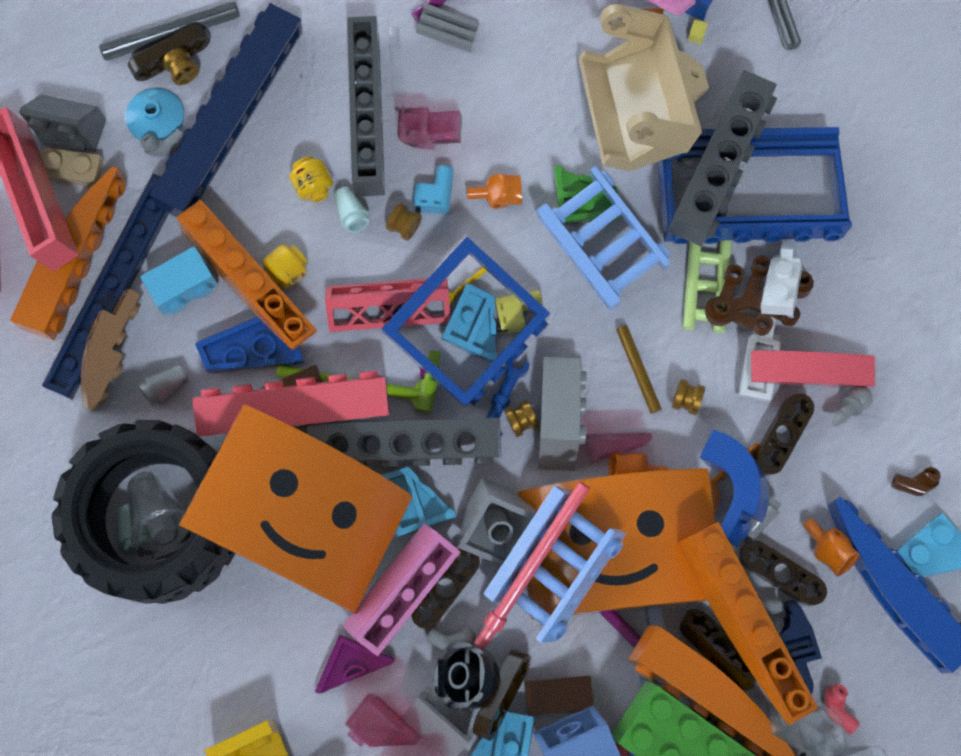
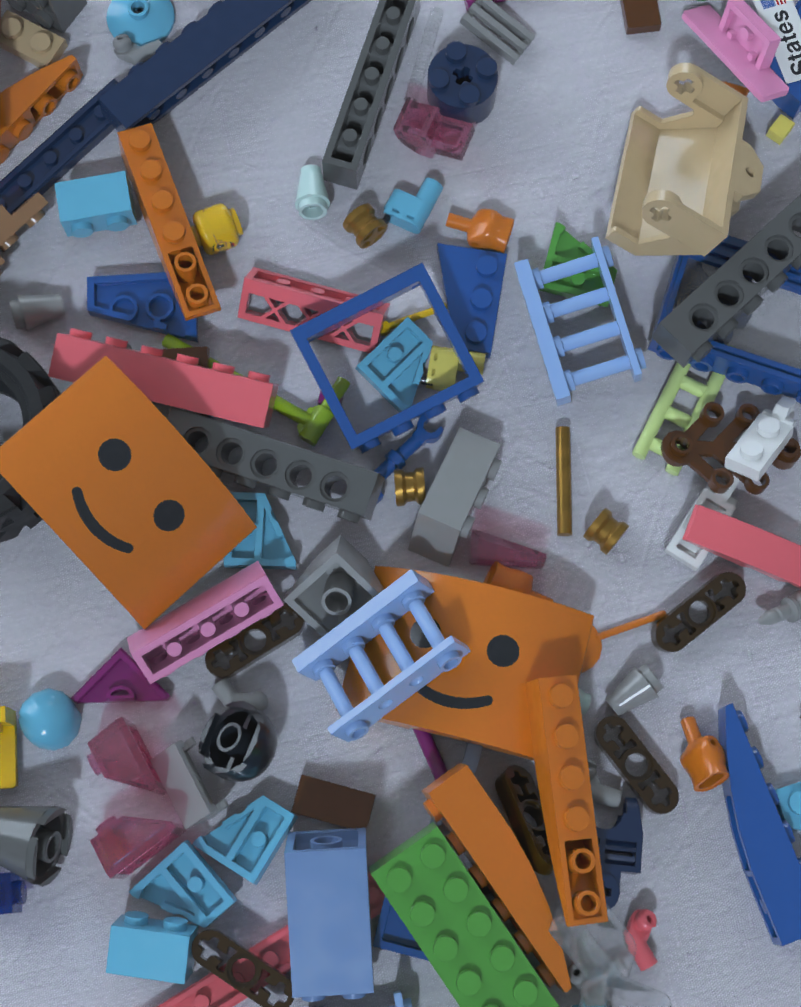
camera: 20 degrees right, 0 degrees up
(304, 715) = (49, 719): none -> medium azure hair
(311, 179) = (281, 143): yellow head -> none
(437, 80) = (462, 82): none -> dark blue brick
(496, 707) = (257, 788): dark brown beam -> none
(497, 618) = (296, 693): coral bar -> none
(509, 243) = (472, 292): none -> blue wing
(748, 480) = (632, 652): blue arch -> none

